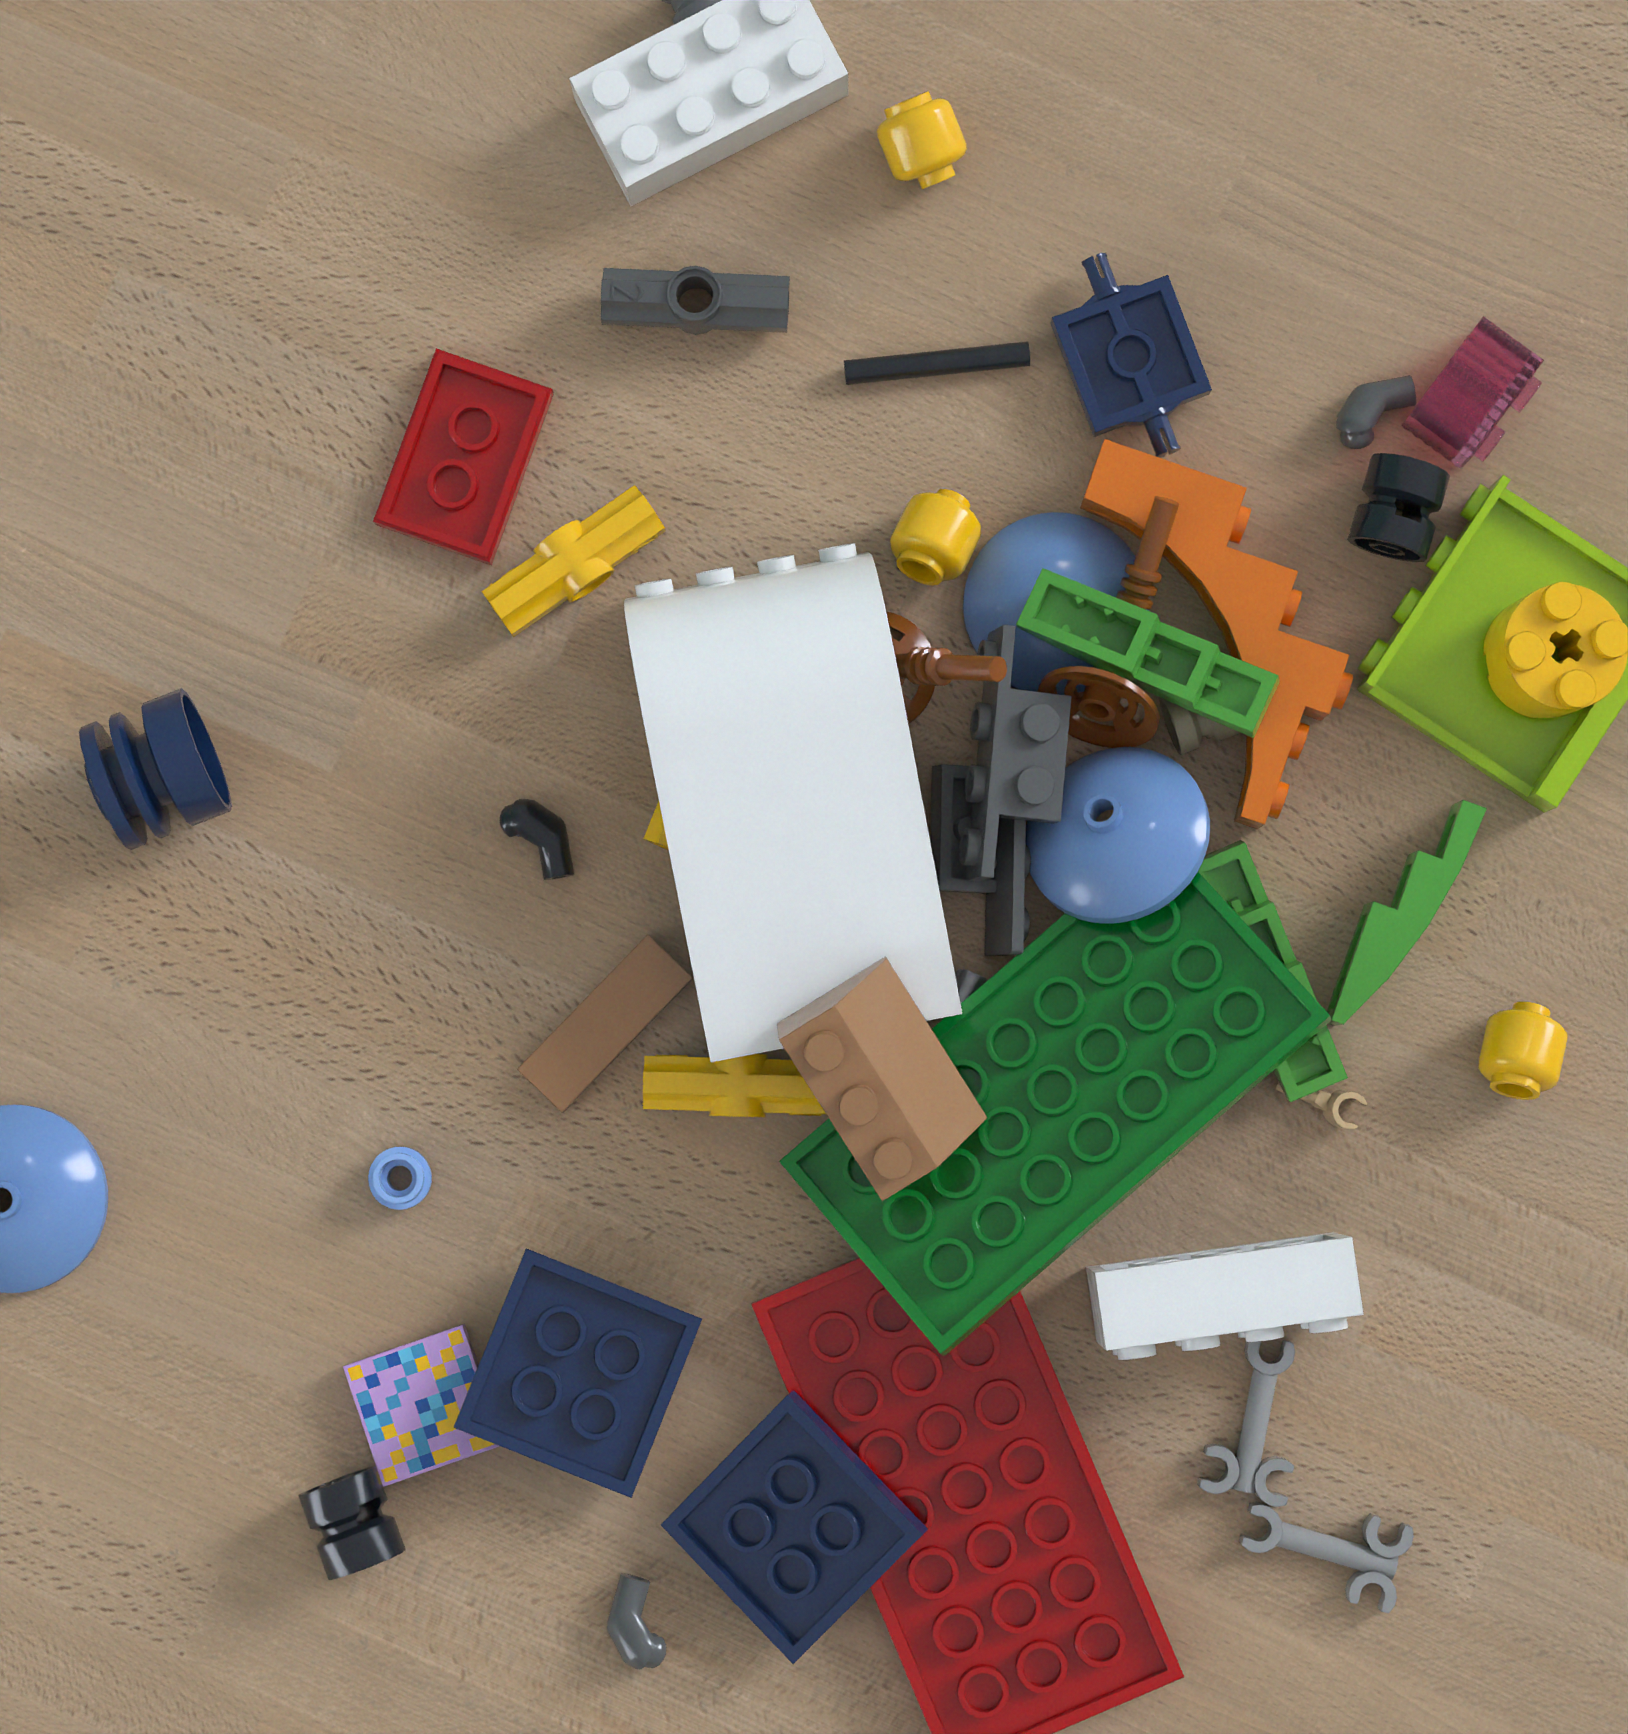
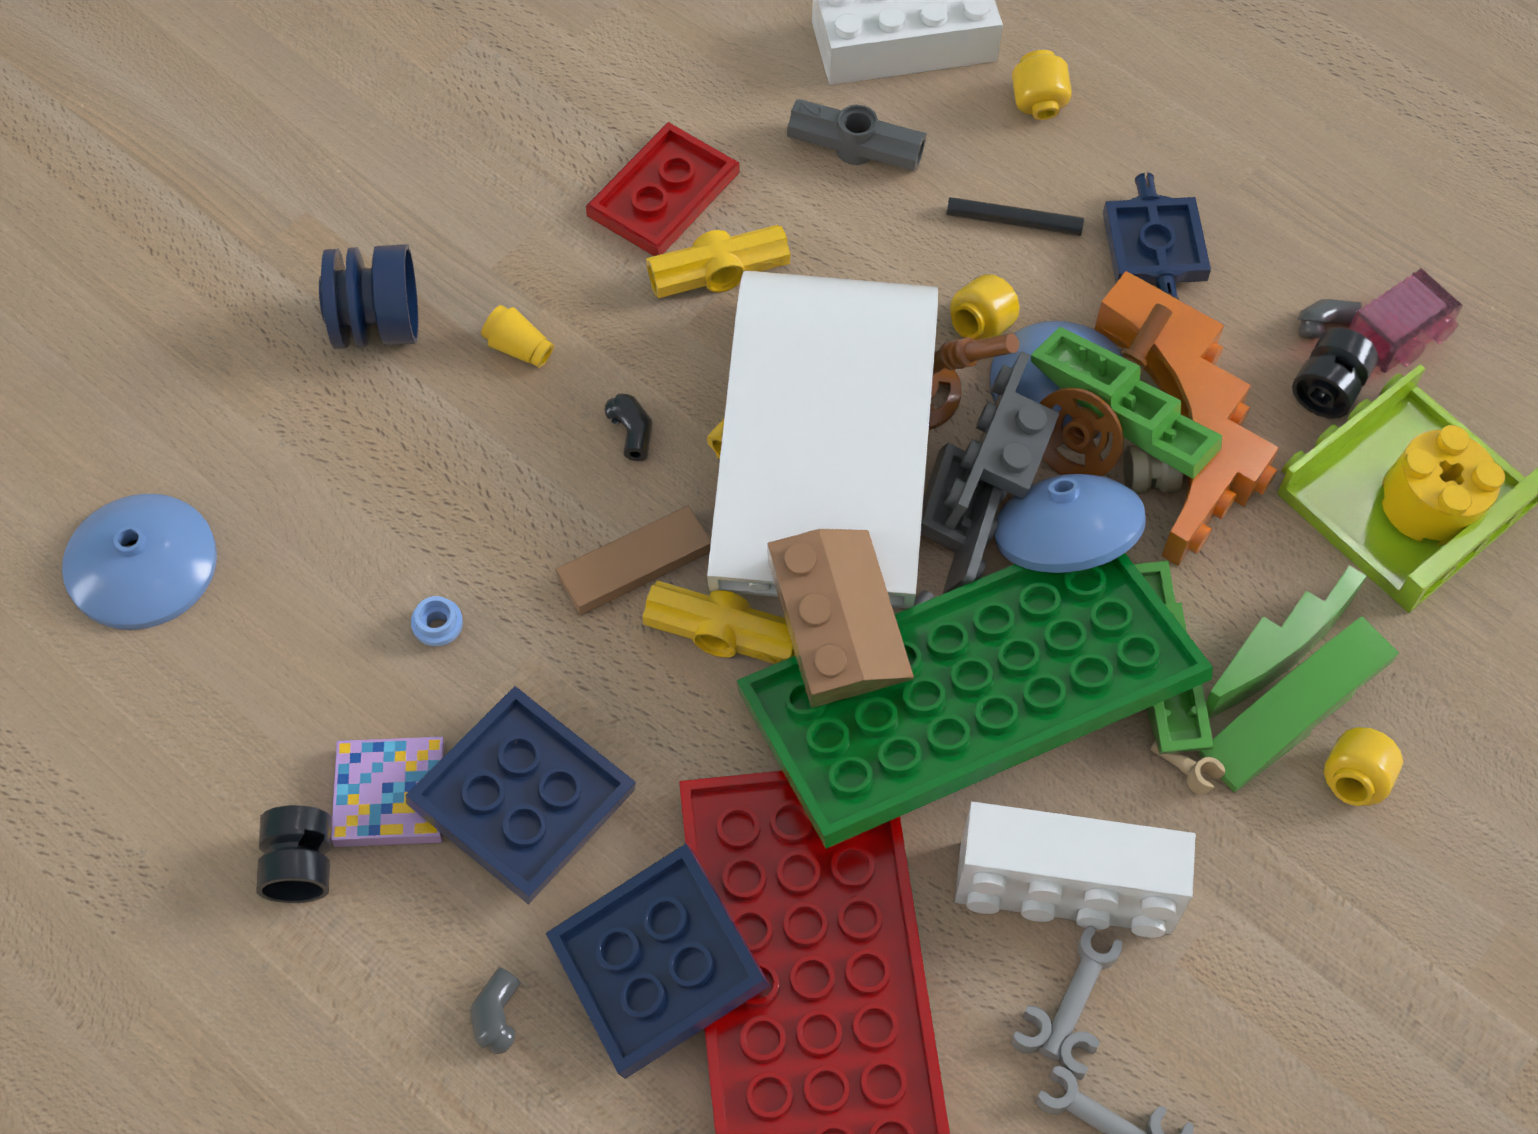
camera: 10 degrees right, 25 degrees down
(356, 755) = (514, 335): none -> yellow cone
(1437, 991) = (1300, 702): none -> bright green slope

